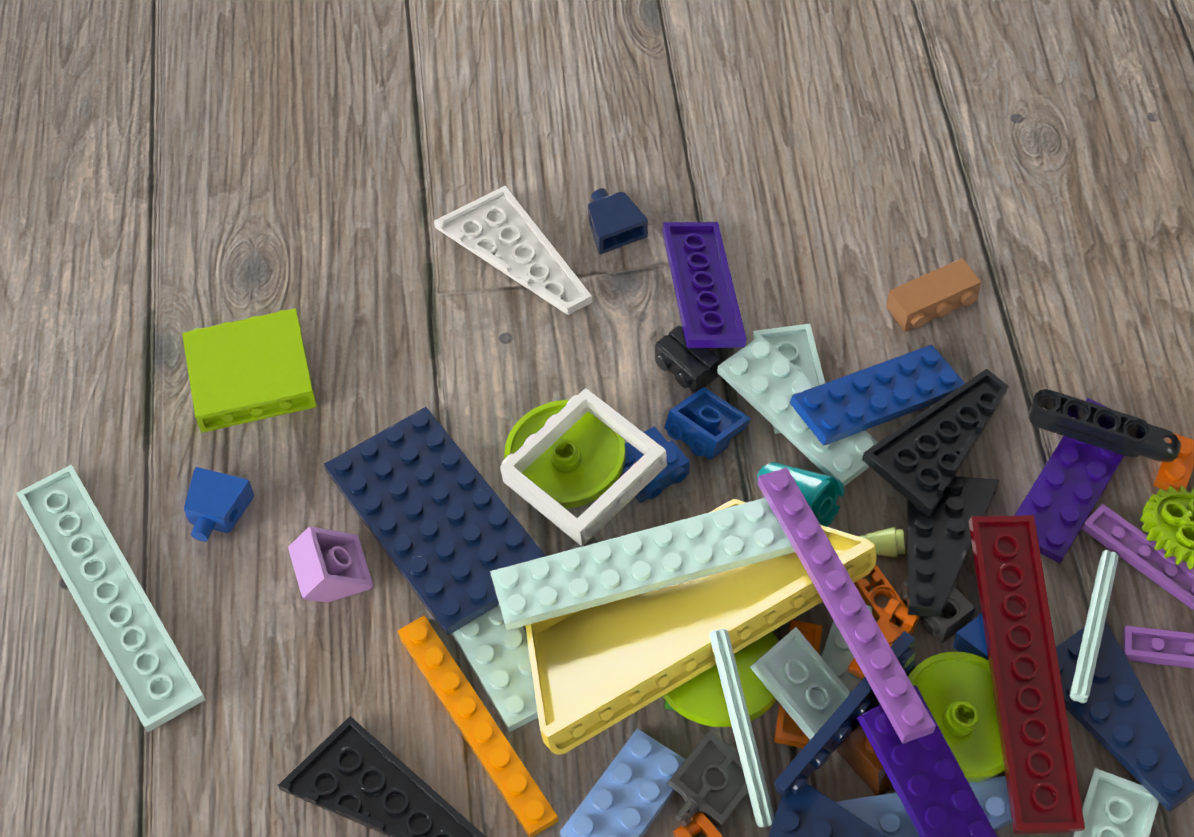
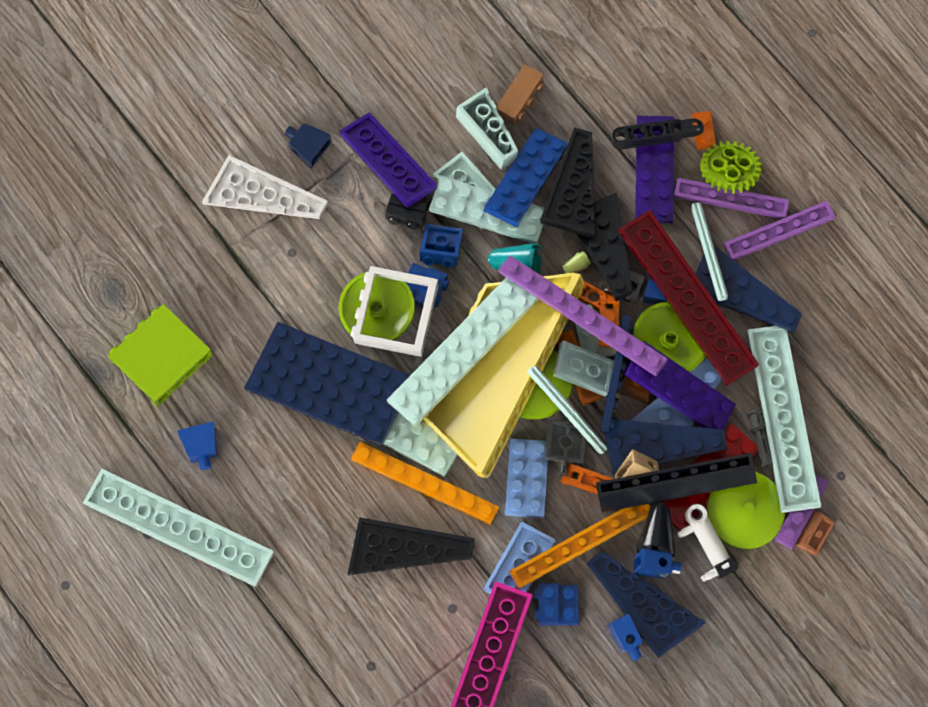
camera: 30 degrees left, 15 degrees up
(329, 565) = (289, 443): lavender slope -> none
(862, 309) = (487, 128): none -> light aqua wedge

